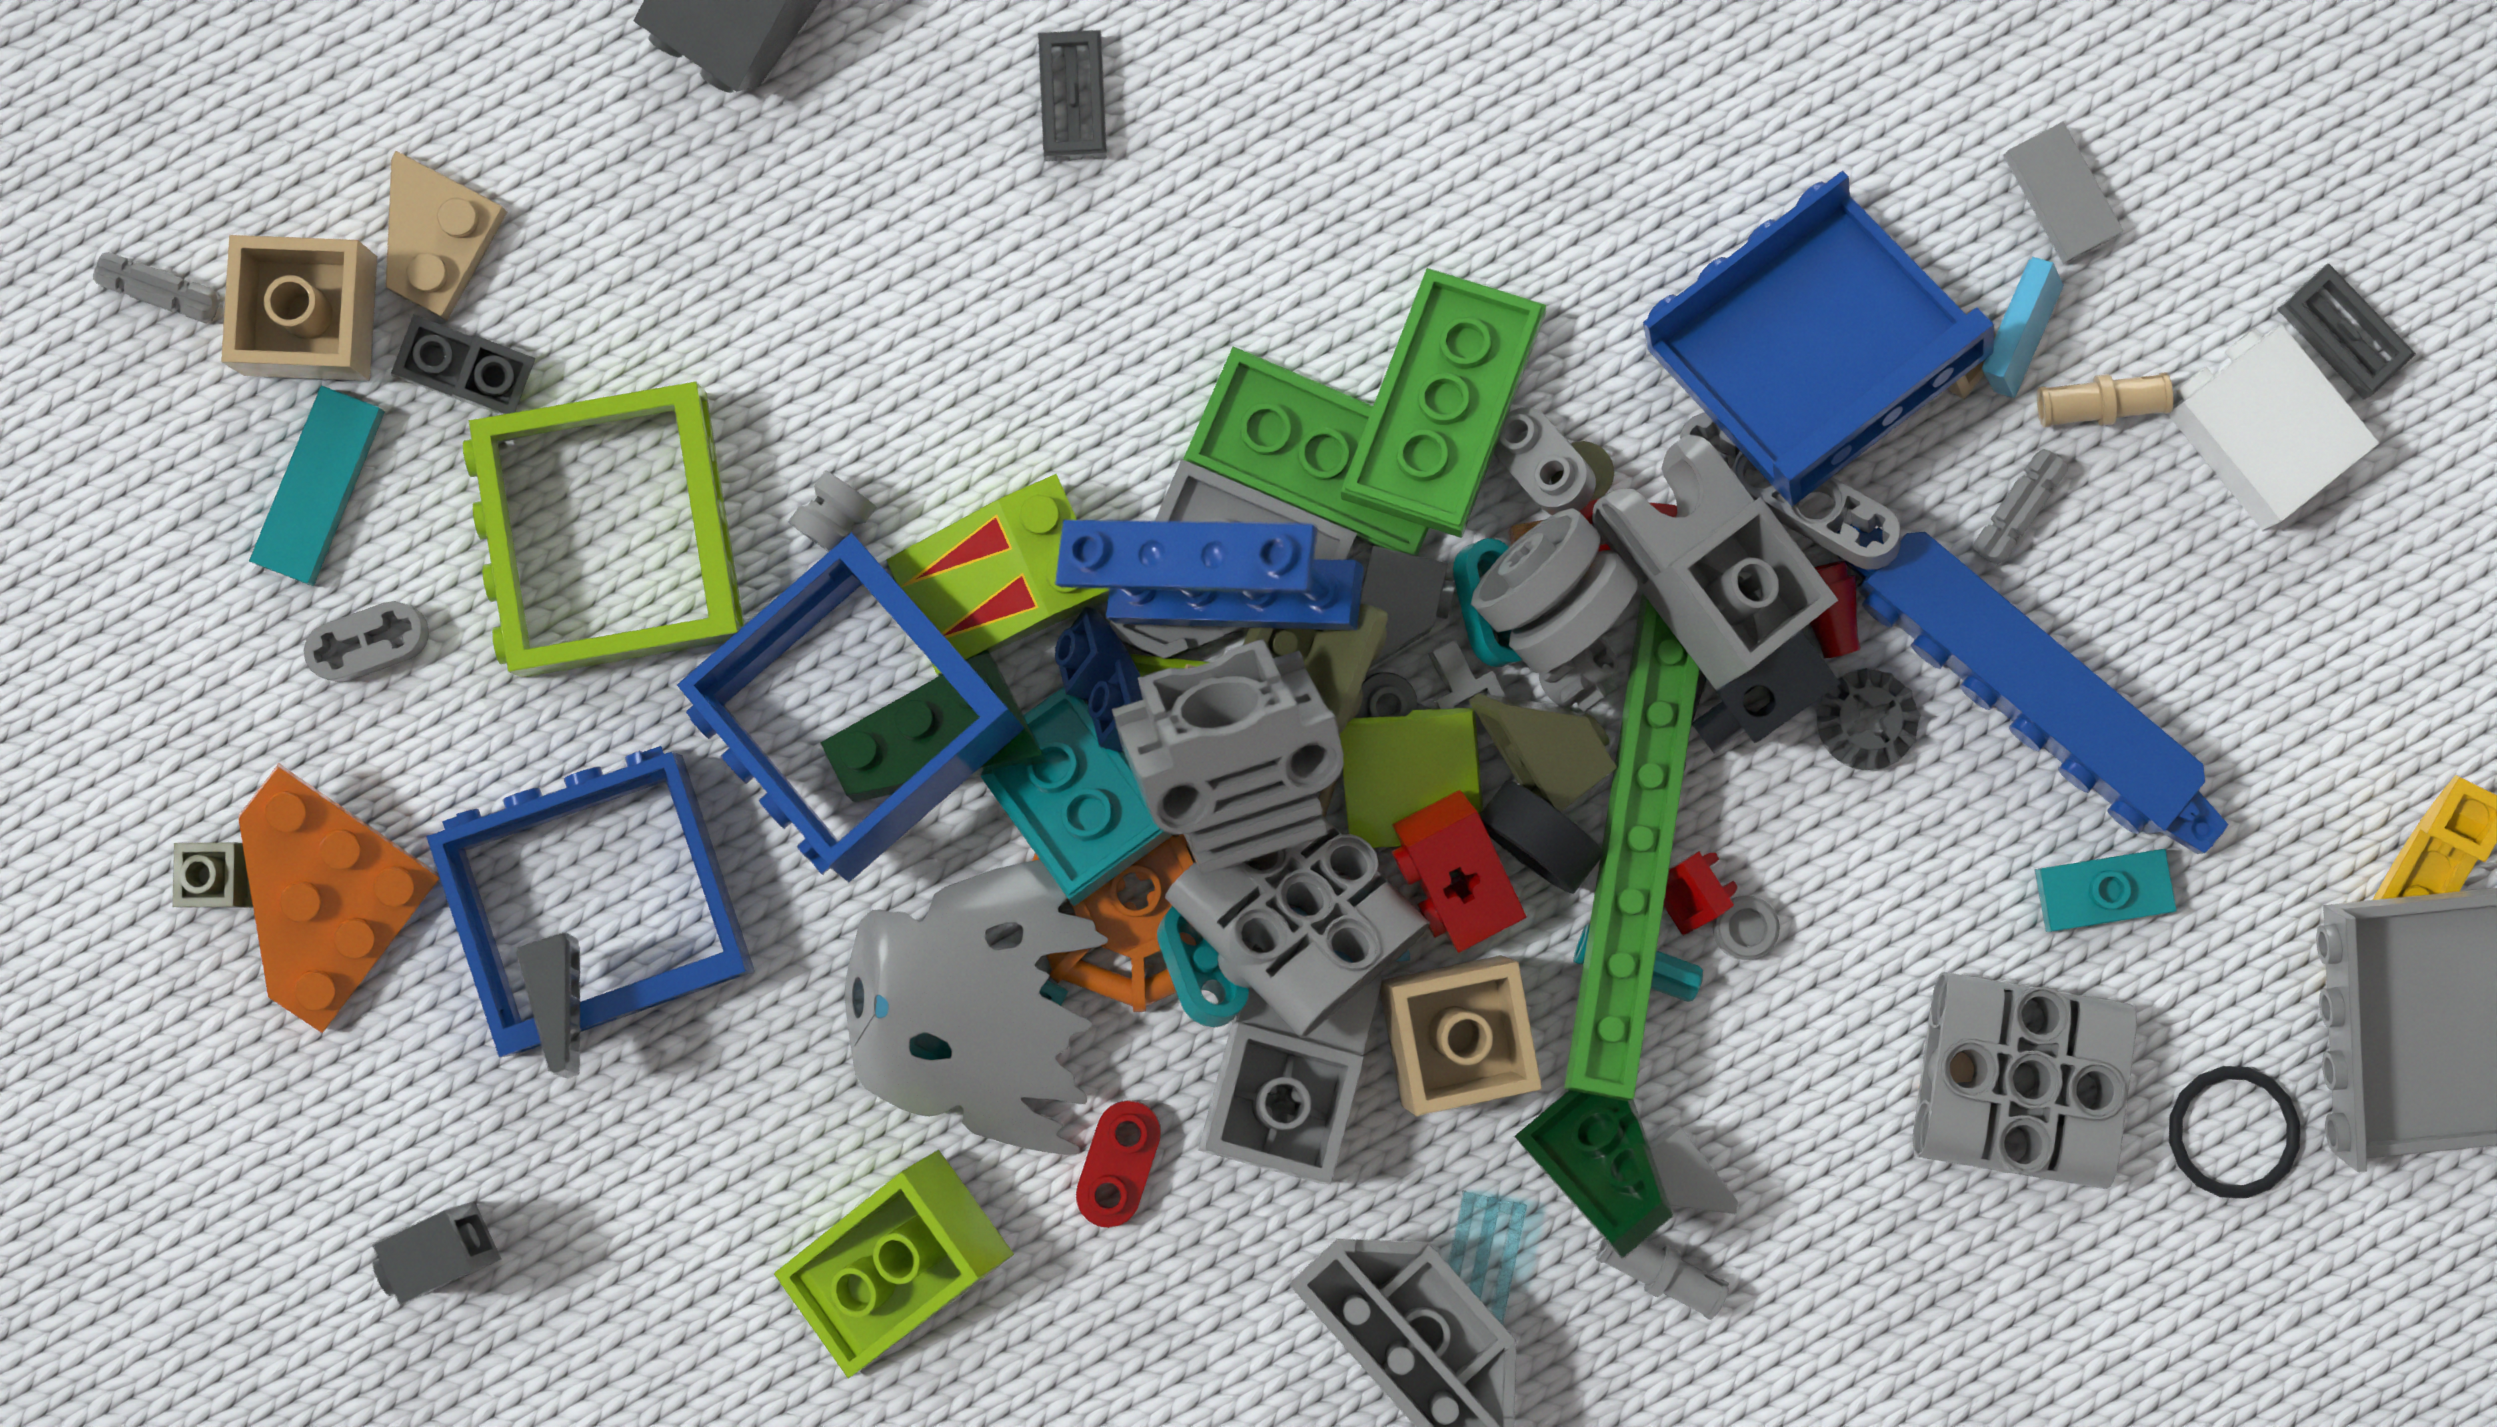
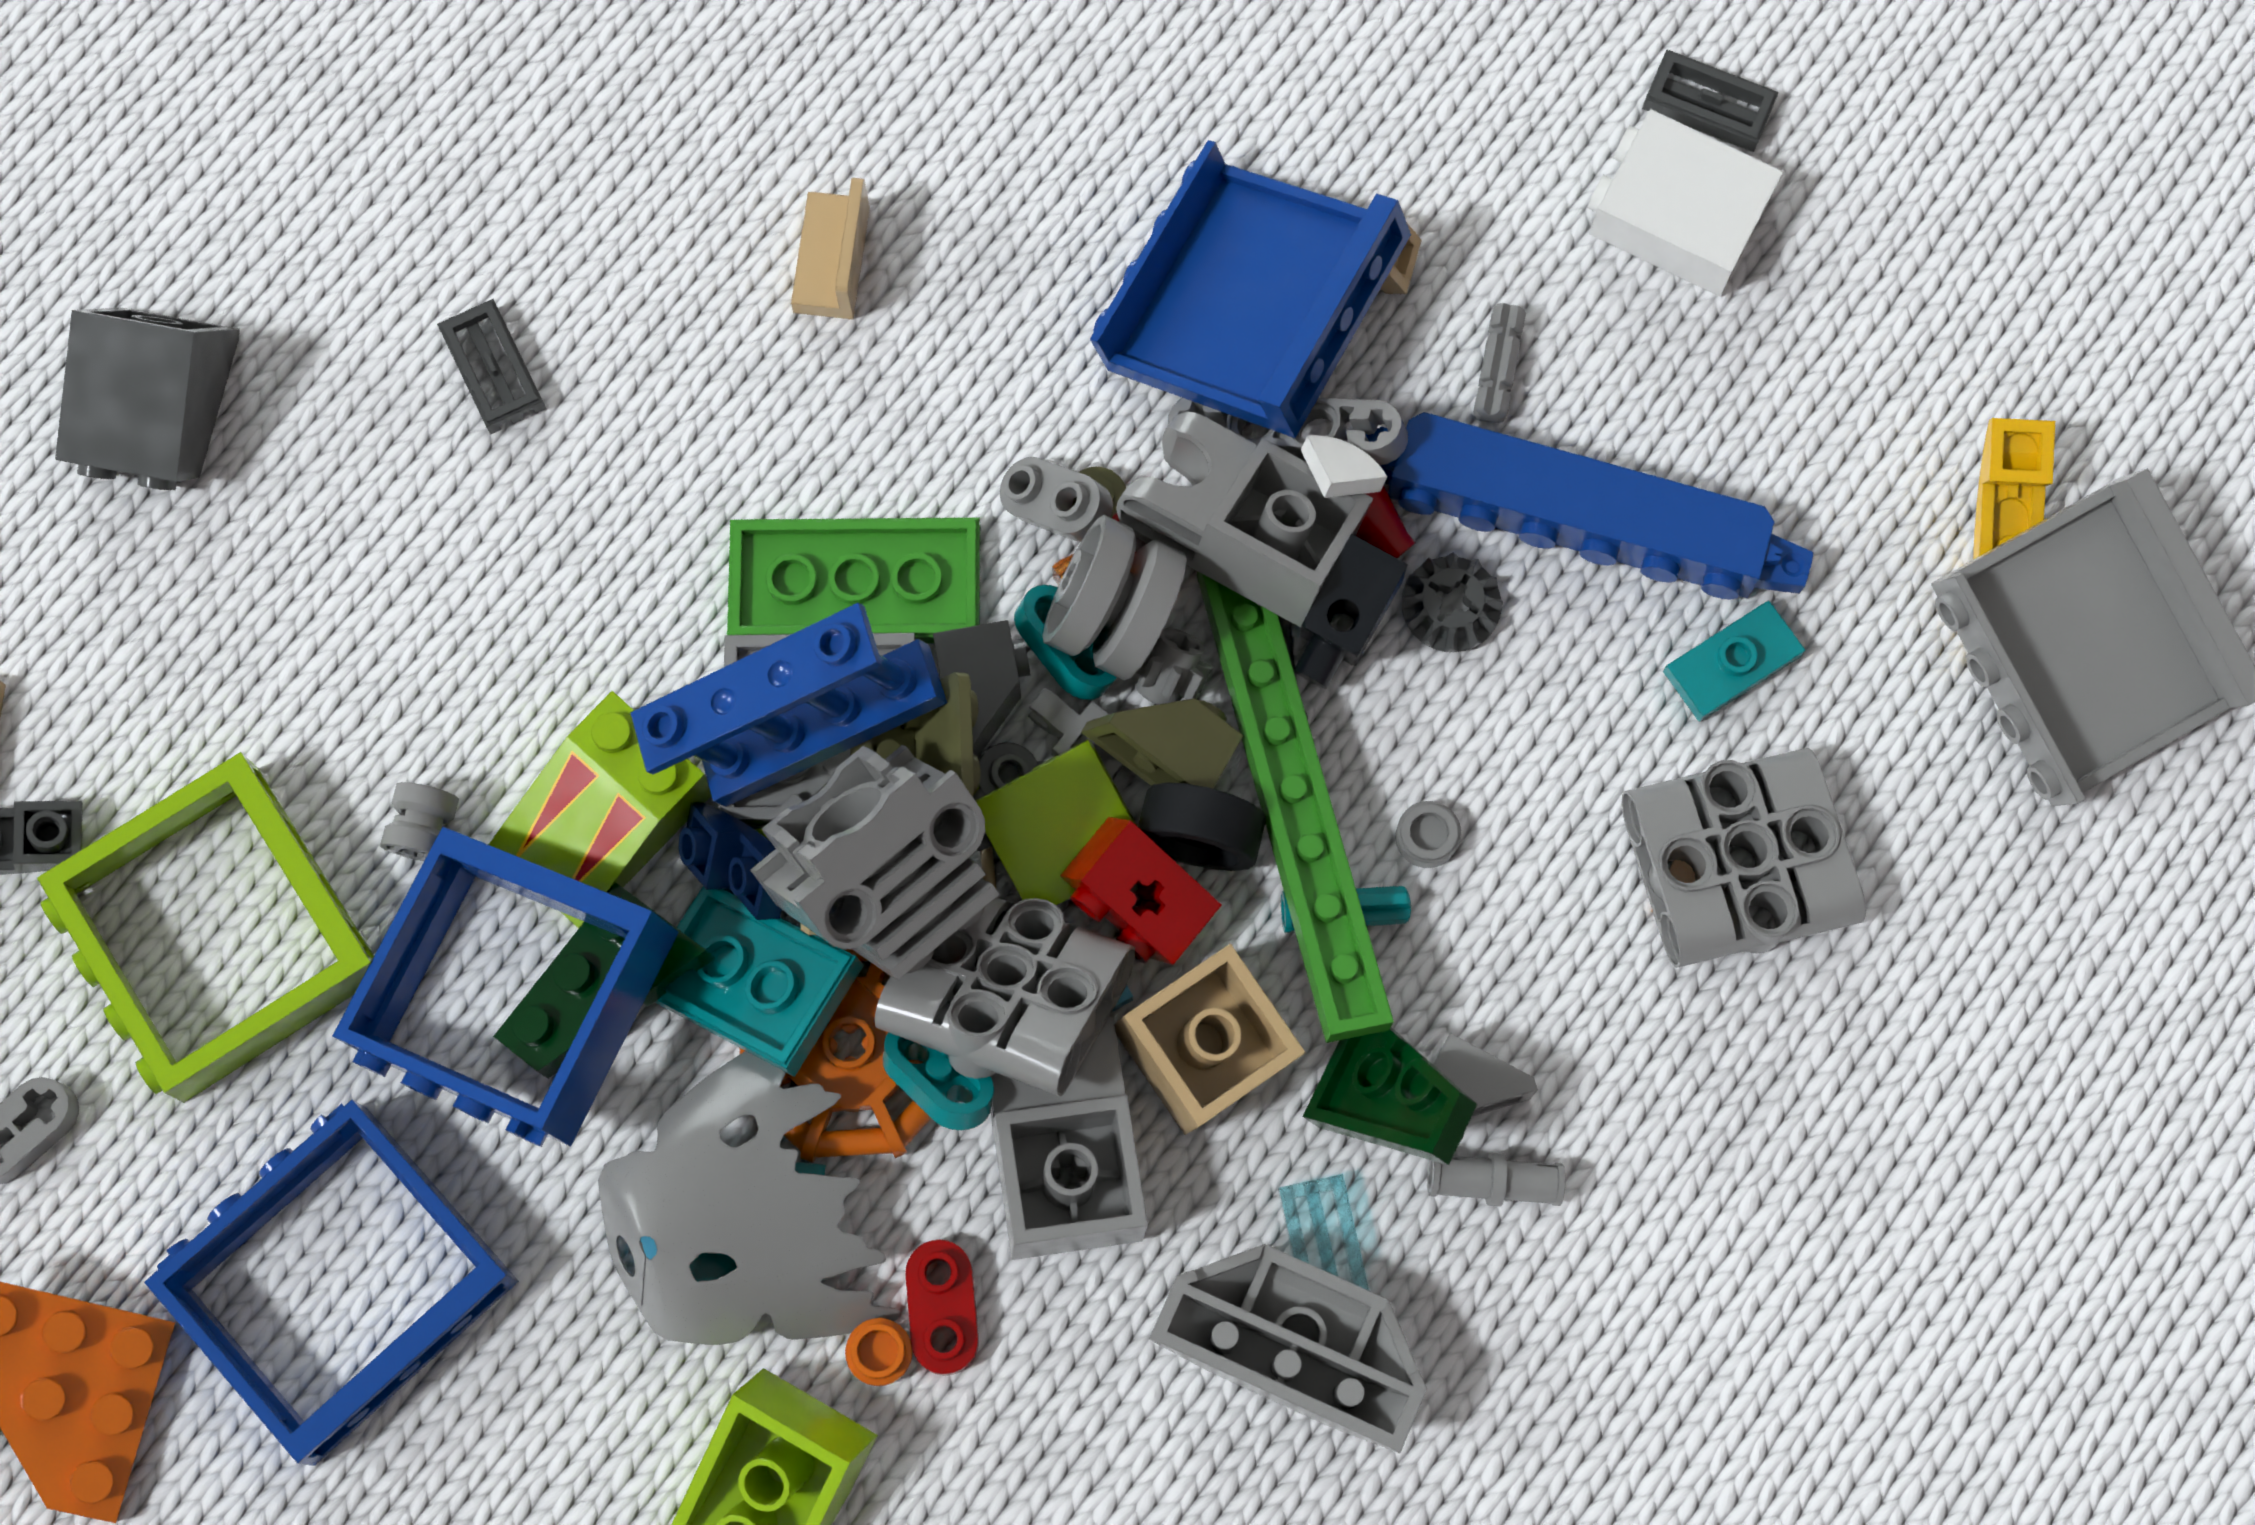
camera: 20 degrees left, 10 degrees down
(553, 988) = (321, 1364): dark grey slope -> none
(1046, 1178) = (878, 1352): none -> orange plate
(1436, 121) = (831, 253): none -> tan panel
(1443, 402) = (942, 486): bright green tile -> none
(1695, 893) = (1367, 819): red tile -> none
(1821, 559) = (1341, 467): none -> white tile
(2023, 326) = (1428, 209): medium azure tile -> none
(2063, 192) = (1410, 87): light grey tile -> none
(2105, 399) = (1529, 241): tan pin -> none
(2292, 1132) = (1914, 864): black piece -> none

